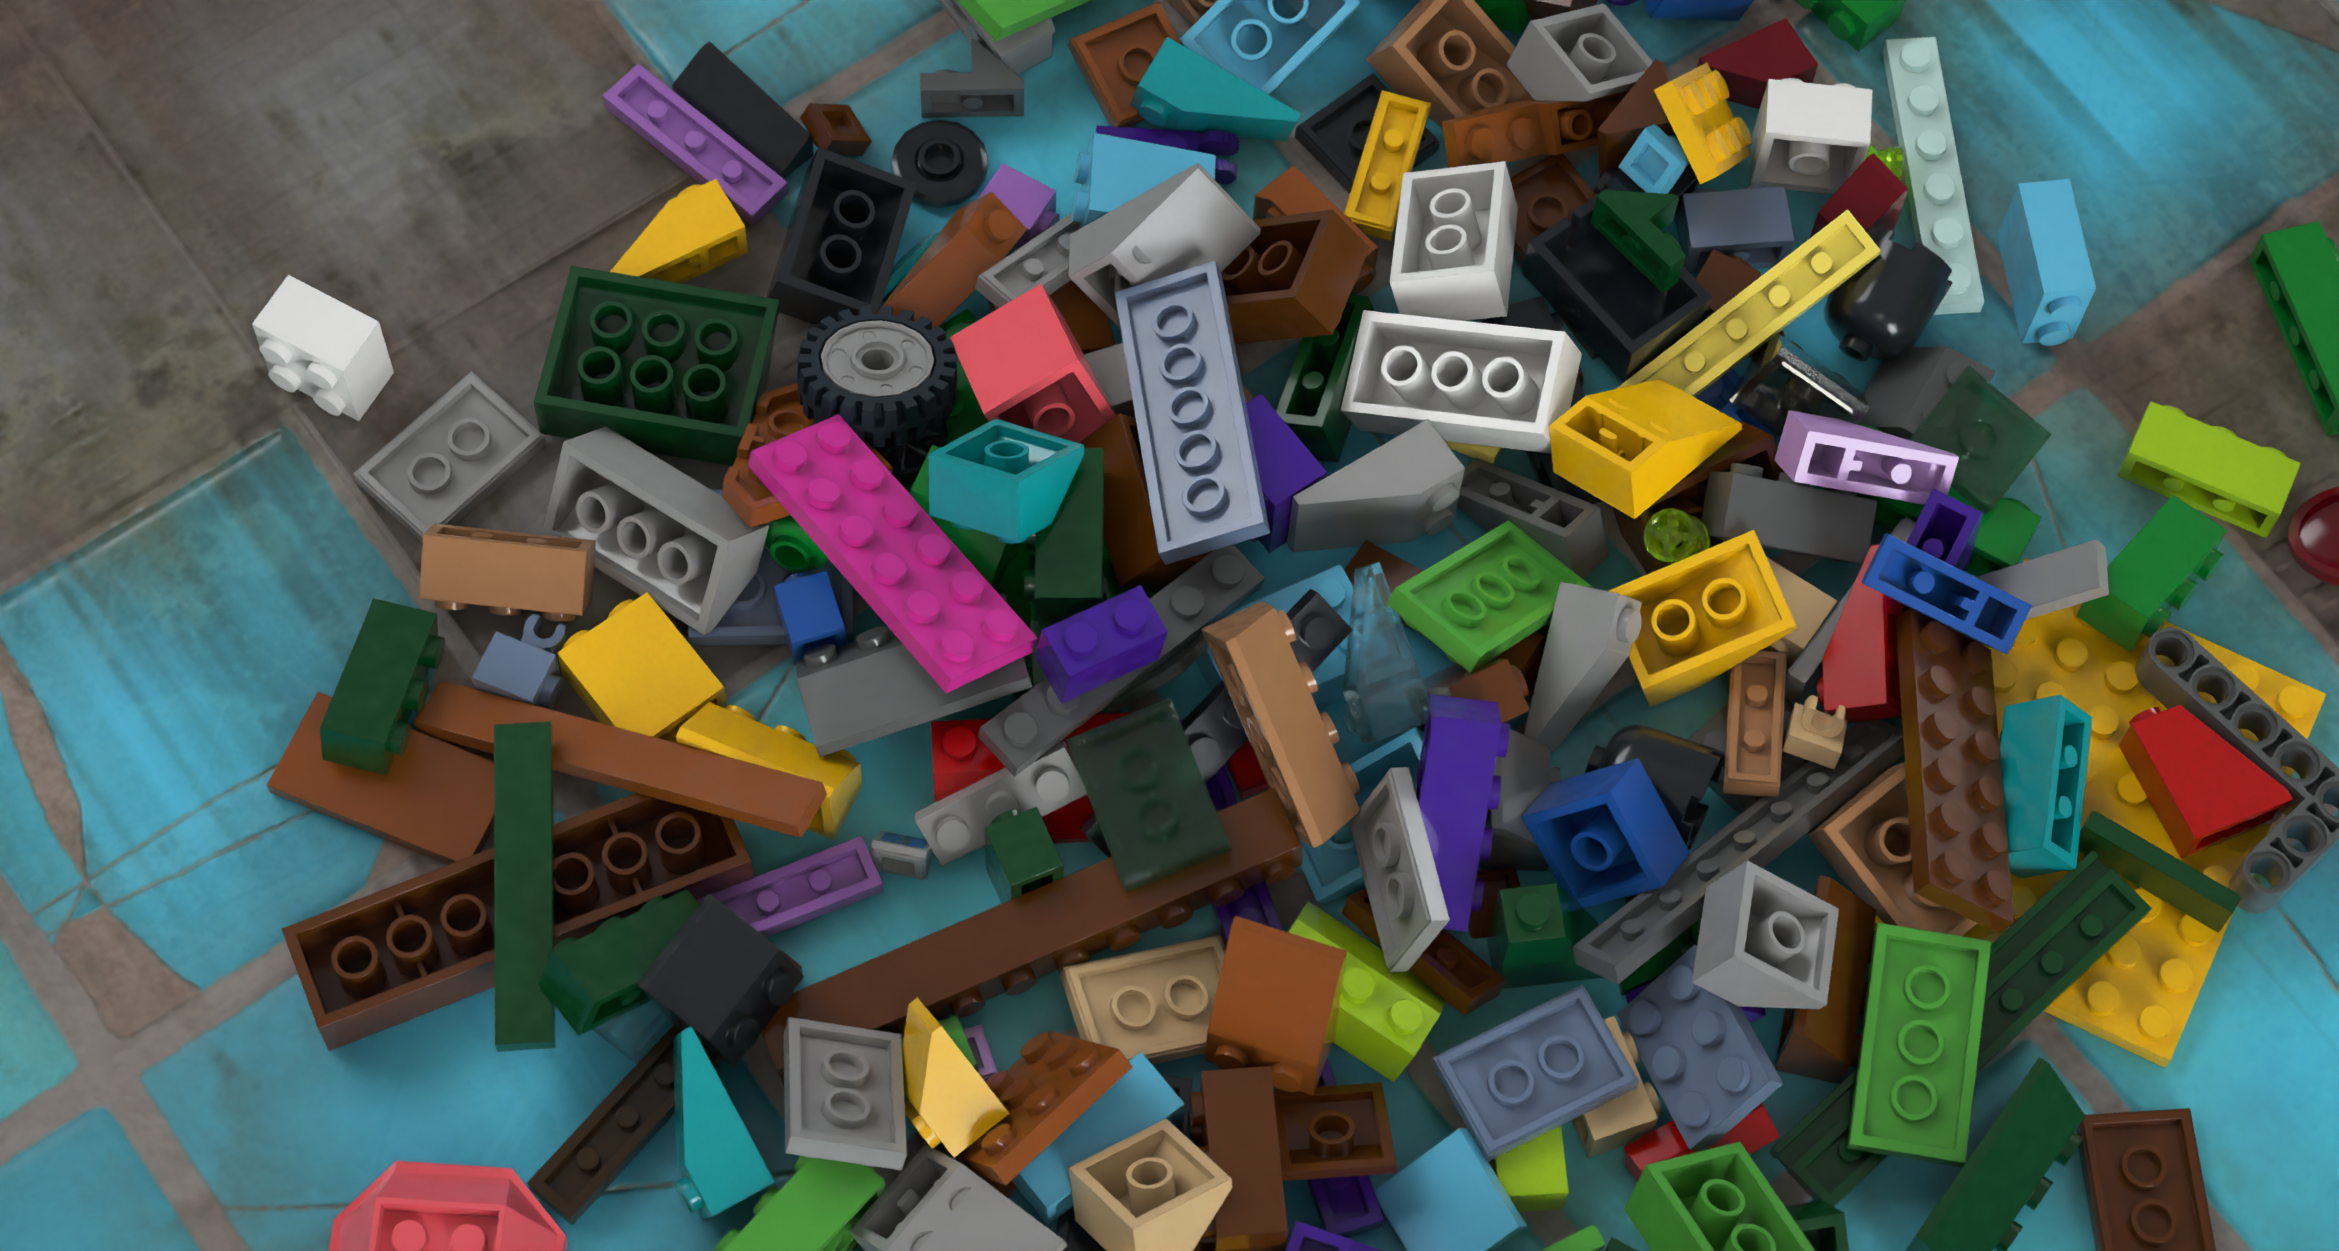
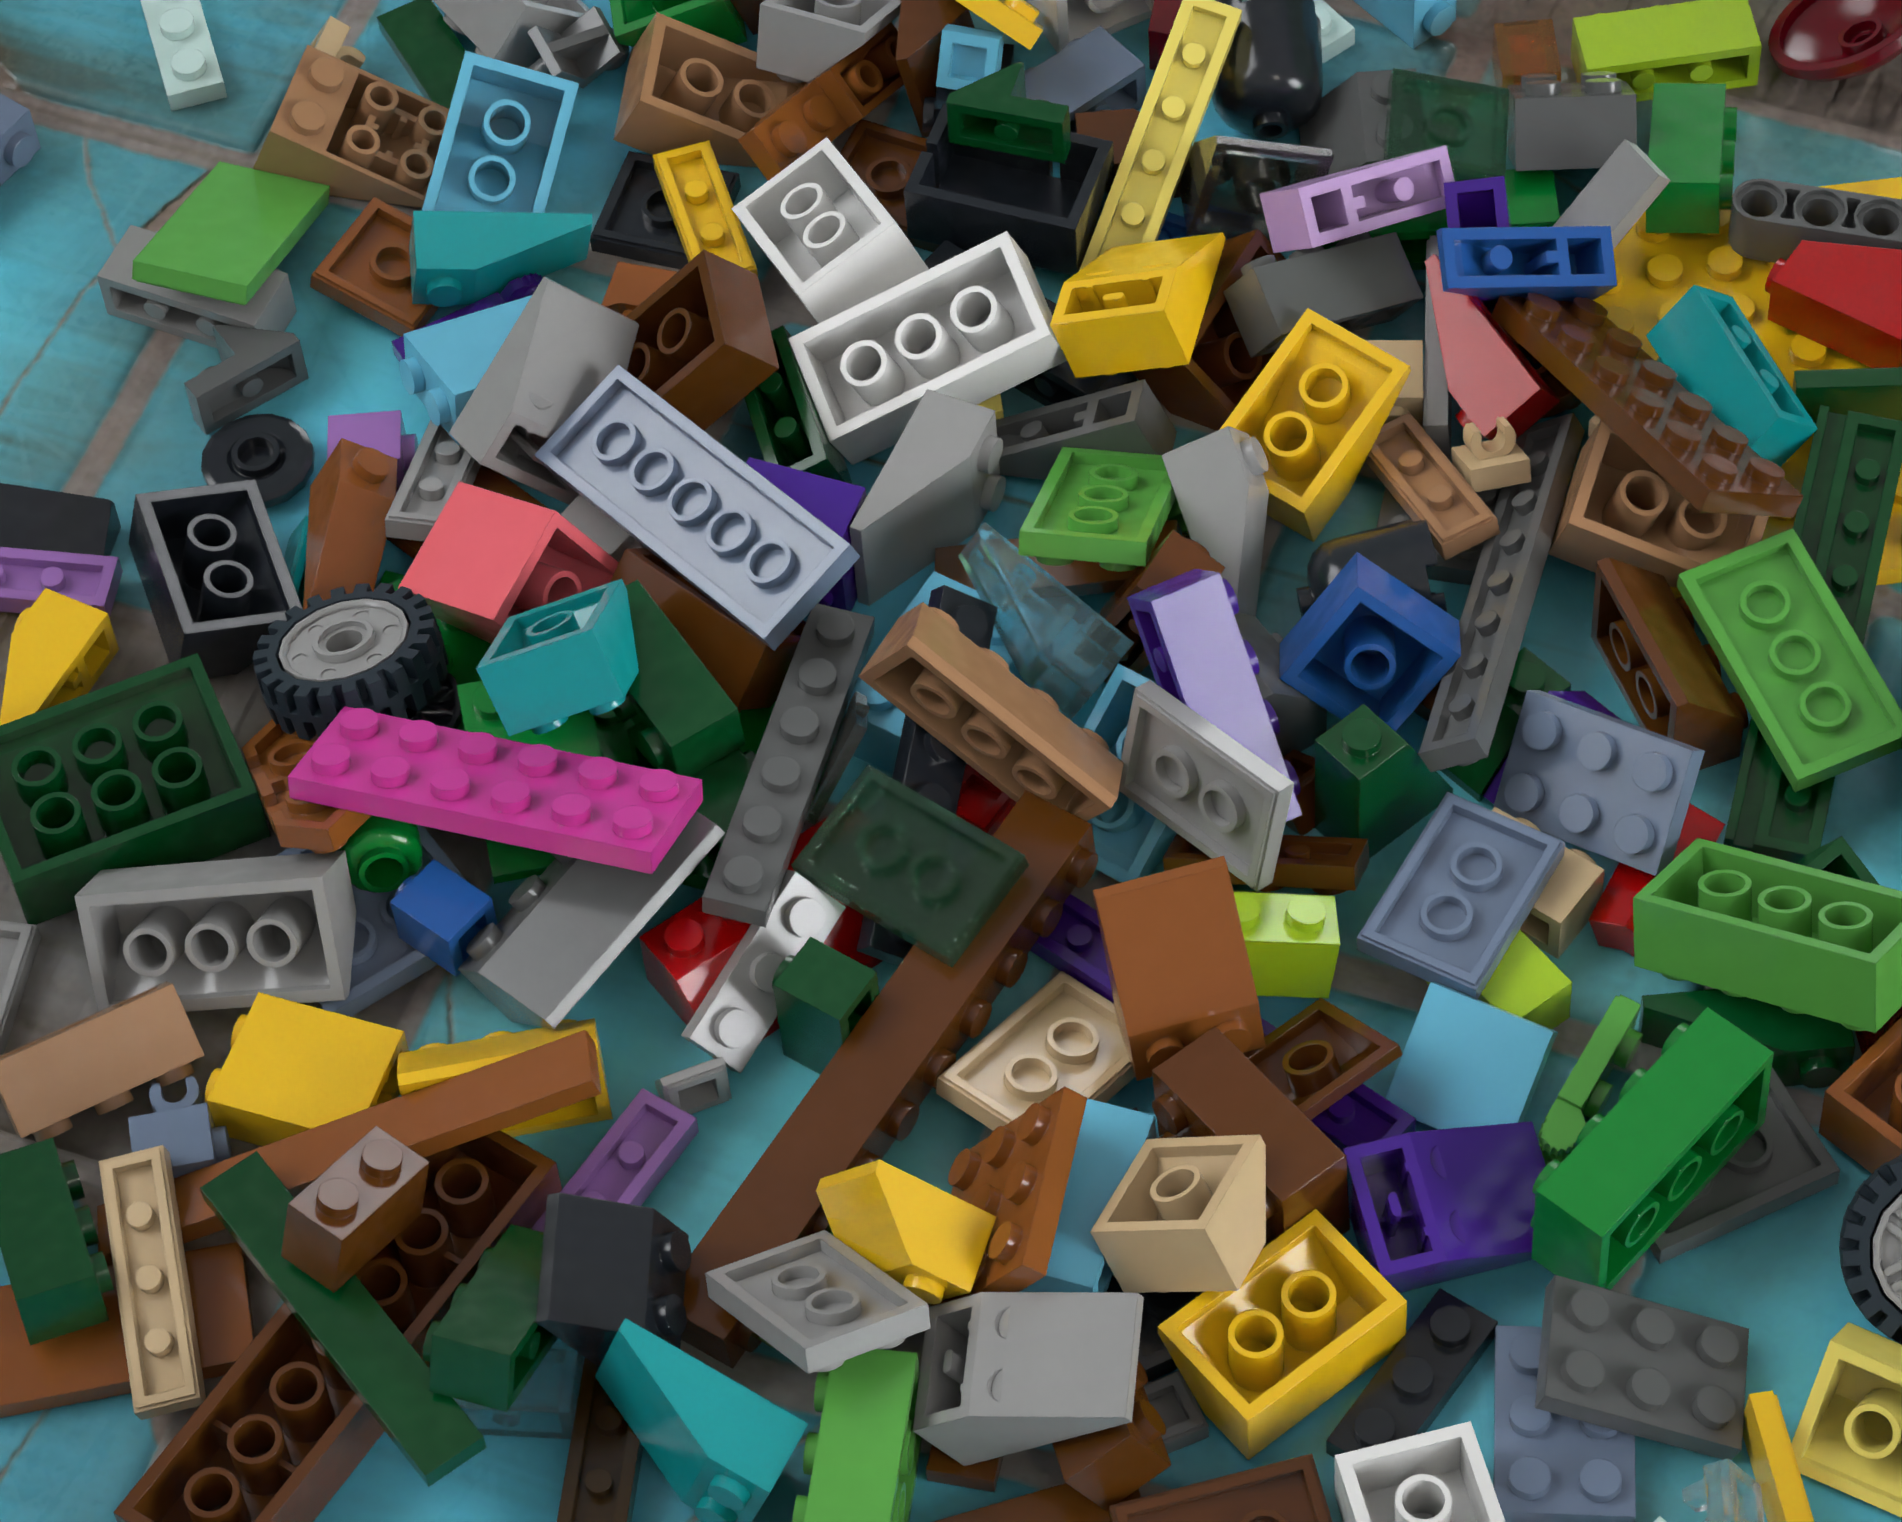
camera: 25 degrees left, 10 degrees down
(430, 767) = (152, 1282): none -> tan tile
(577, 814) = (354, 1209): none -> reddish brown brick
(835, 129) = (125, 479): reddish brown plate -> none
(1101, 644) = (770, 746): dark purple brick -> none
(1666, 531) = (1227, 355): clear neon green wheel -> none
(1765, 941) = (1593, 638): light grey slope -> none
(2080, 489) = (1569, 123): none -> dark grey brick
(2091, 415) = (1524, 49): none -> clear orange brick

